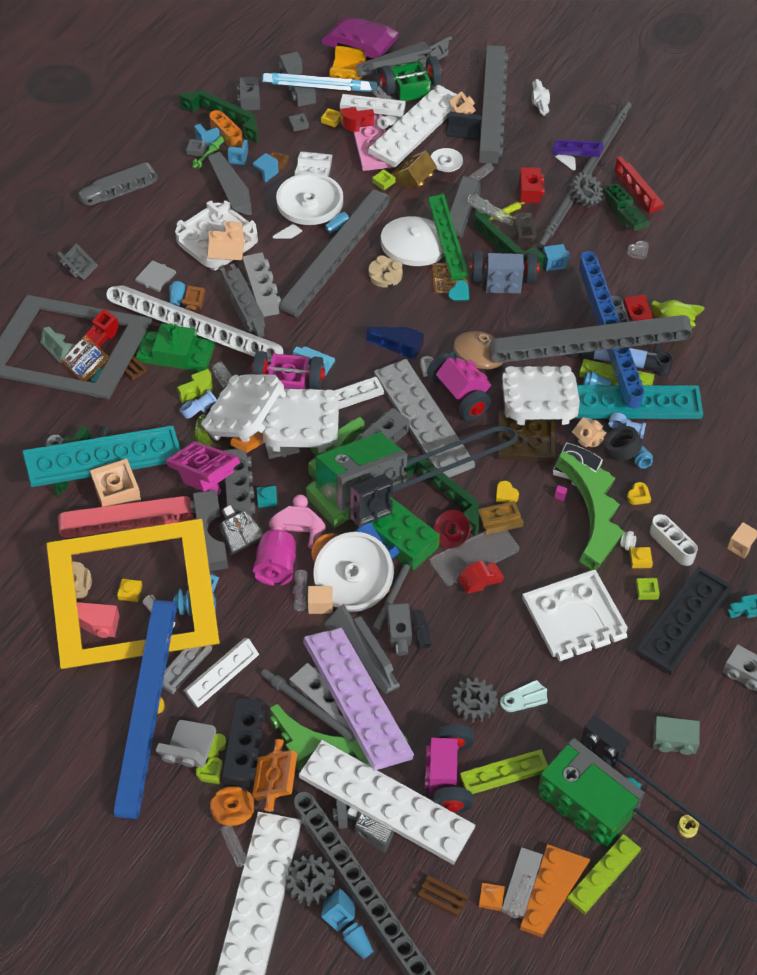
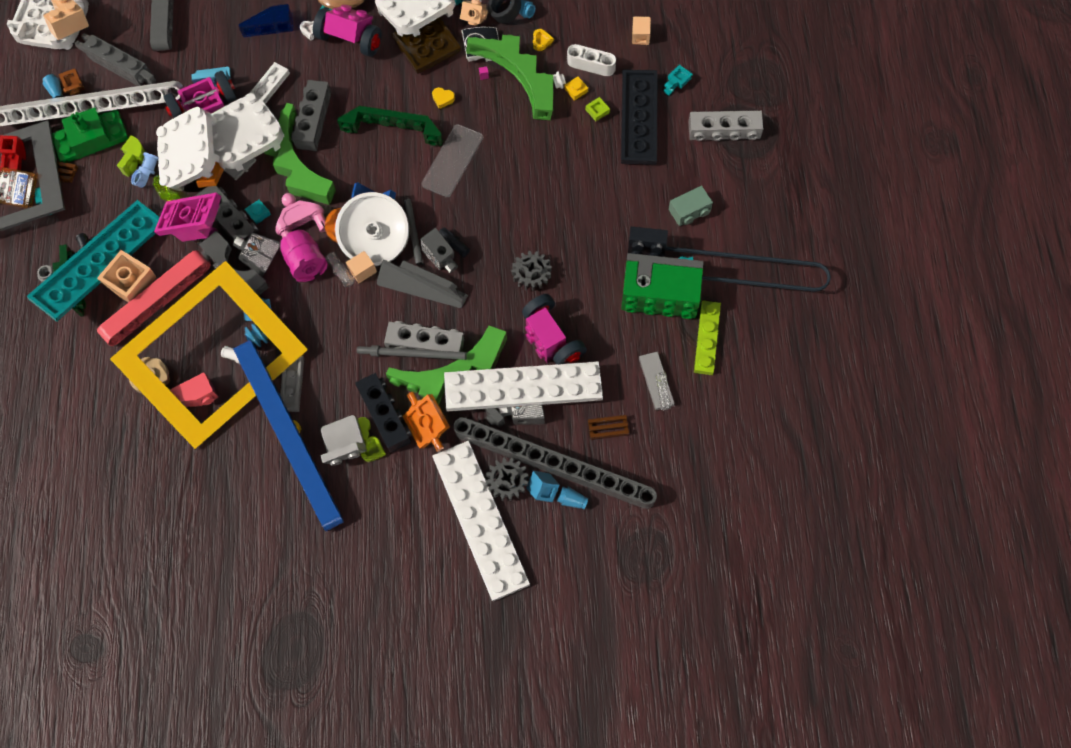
camera: 30 degrees left, 15 degrees up
(130, 590) = (203, 353): yellow plate -> none
(155, 276) = (22, 82): light grey piece -> none
(221, 374) = (145, 133): clear beam -> none
(221, 672) = (326, 371): white plate -> none
(232, 806) = (403, 459): orange plate -> none
(234, 845) = (431, 491): clear axle -> none
(261, 283) = (119, 36): light grey brick -> none
(358, 699) = (447, 324): lavender plate -> none
(373, 468) = (333, 144): piece -> none
(409, 535) = (382, 174): green brick -> none
(425, 419) = (343, 77): light grey plate -> none
(446, 523) = (414, 150): dark red dish -> none
(479, 575) = (468, 174): red brick -> none
(491, 896) = (642, 404): orange tile -> none
(500, 517) = (453, 119): pearl gold plate -> none
(504, 772) = (590, 309): lime plate -> none
(525, 697) = (565, 245): light aqua piece -> none
(552, 886) = (677, 363): orange wing -> none
(575, 615) = (559, 161): white hinge -> none
(685, 832) = (740, 272): light yellow bush -> none

